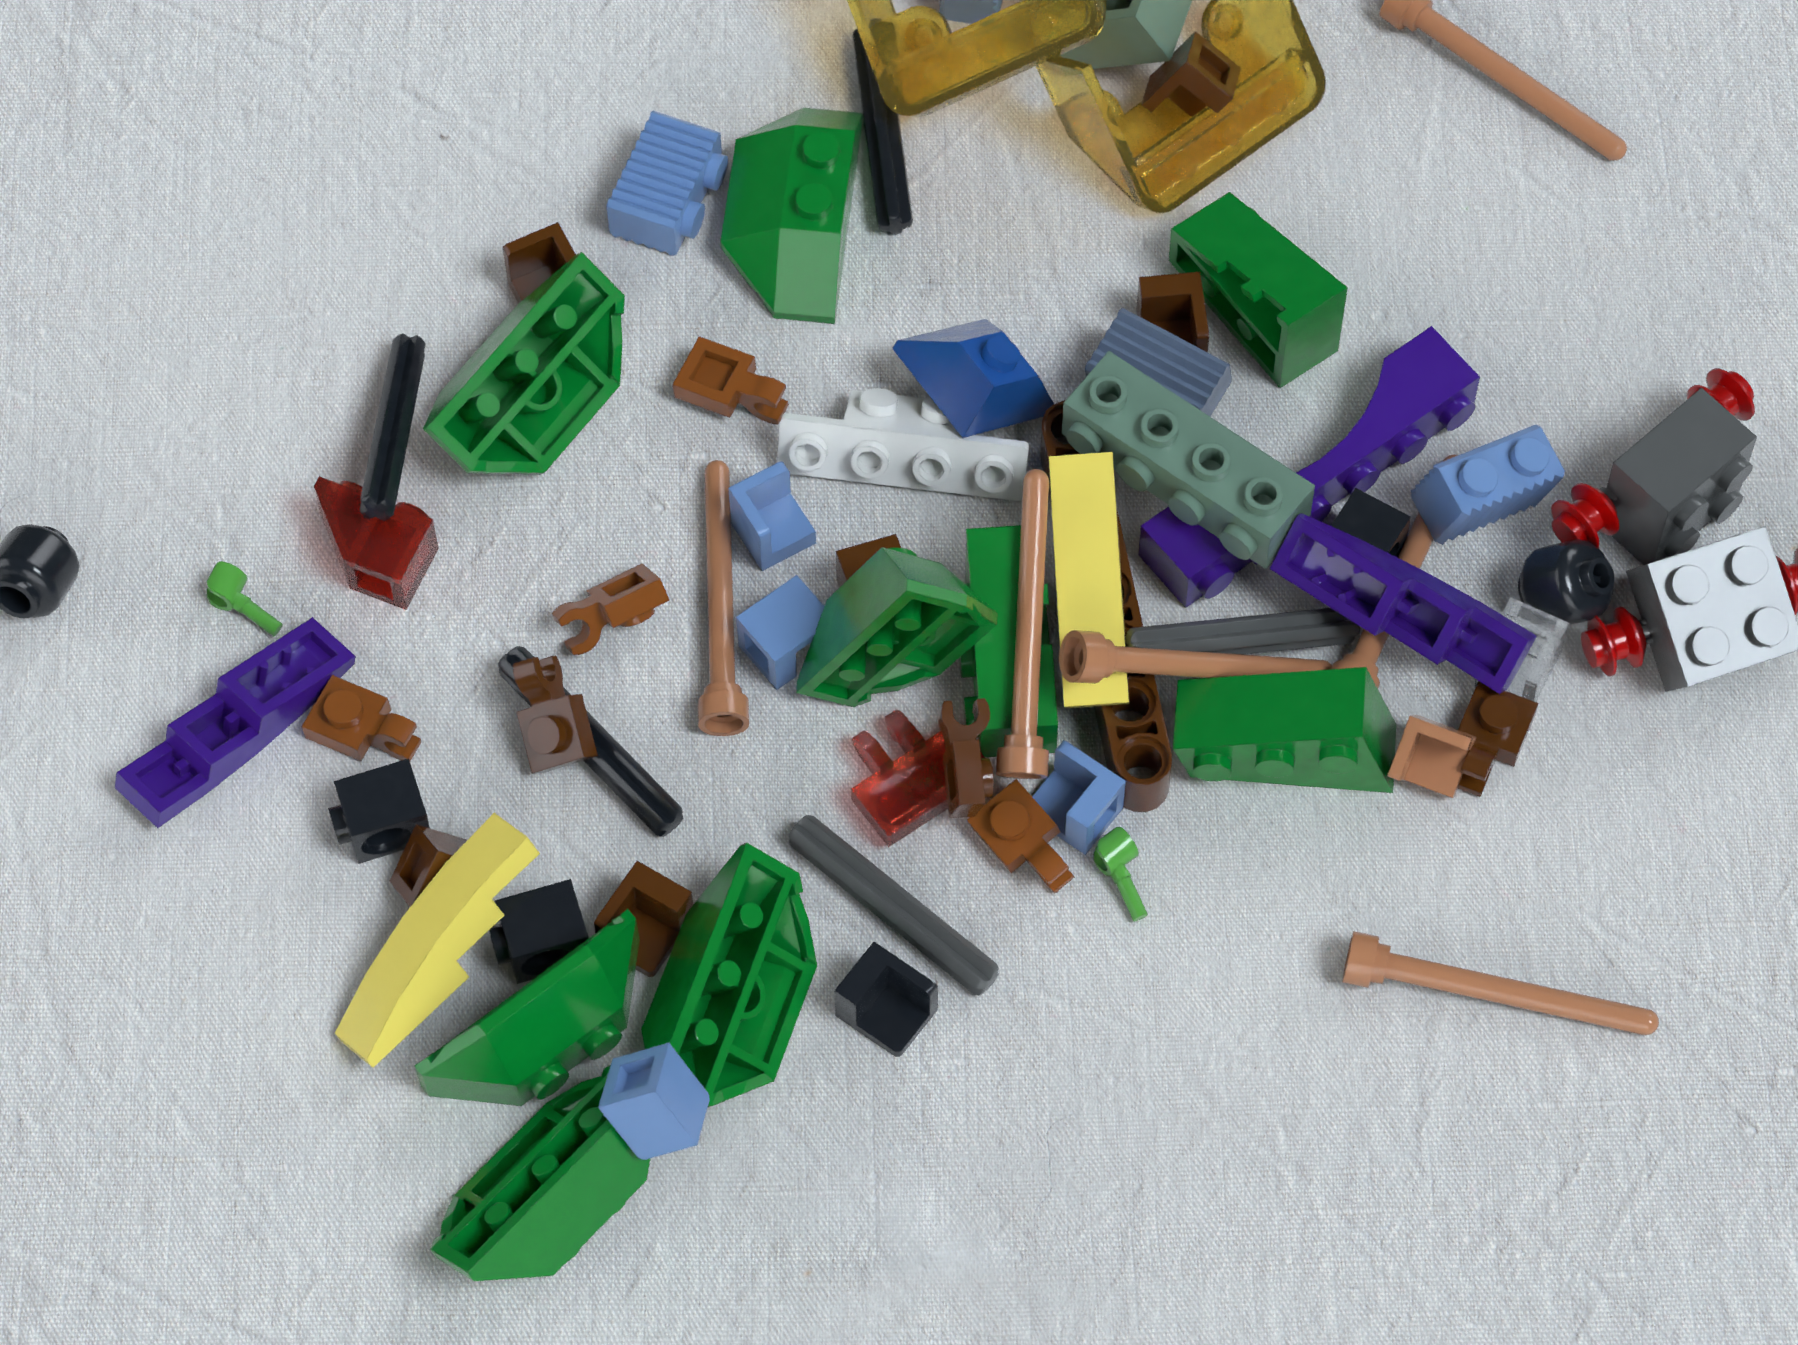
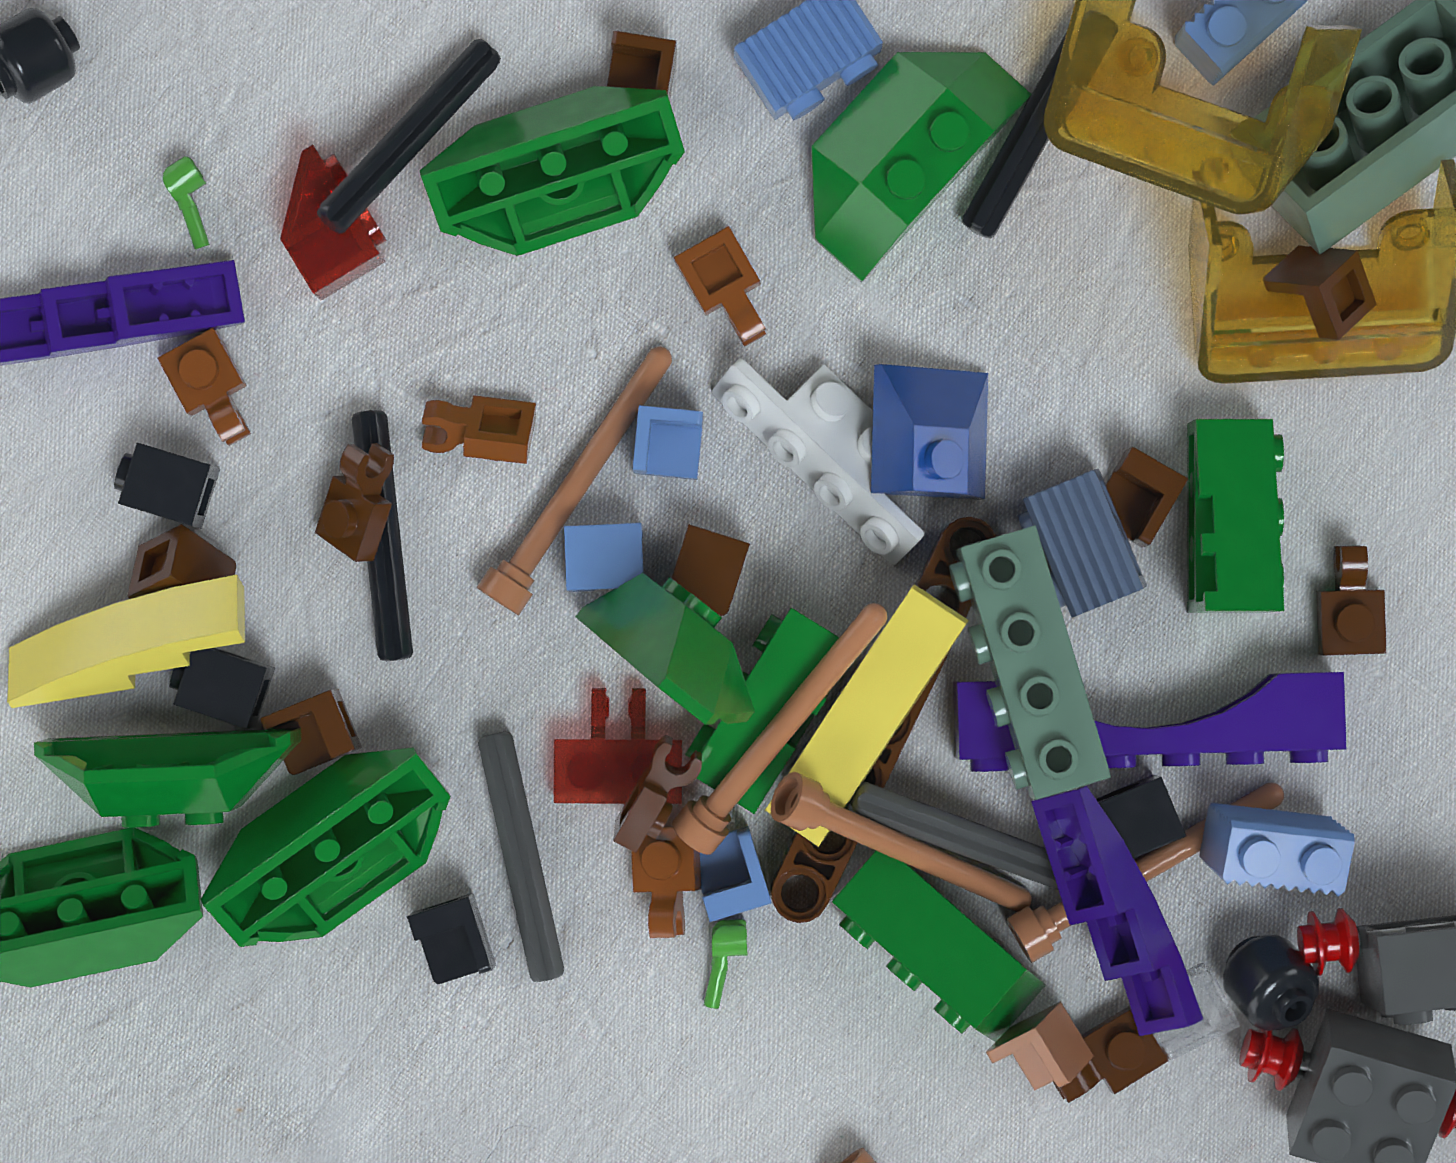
camera: 35 degrees right, 25 degrees up
(654, 1101) = (185, 927): medium blue panel -> none
(1399, 302) = (1351, 617): none -> reddish brown plate

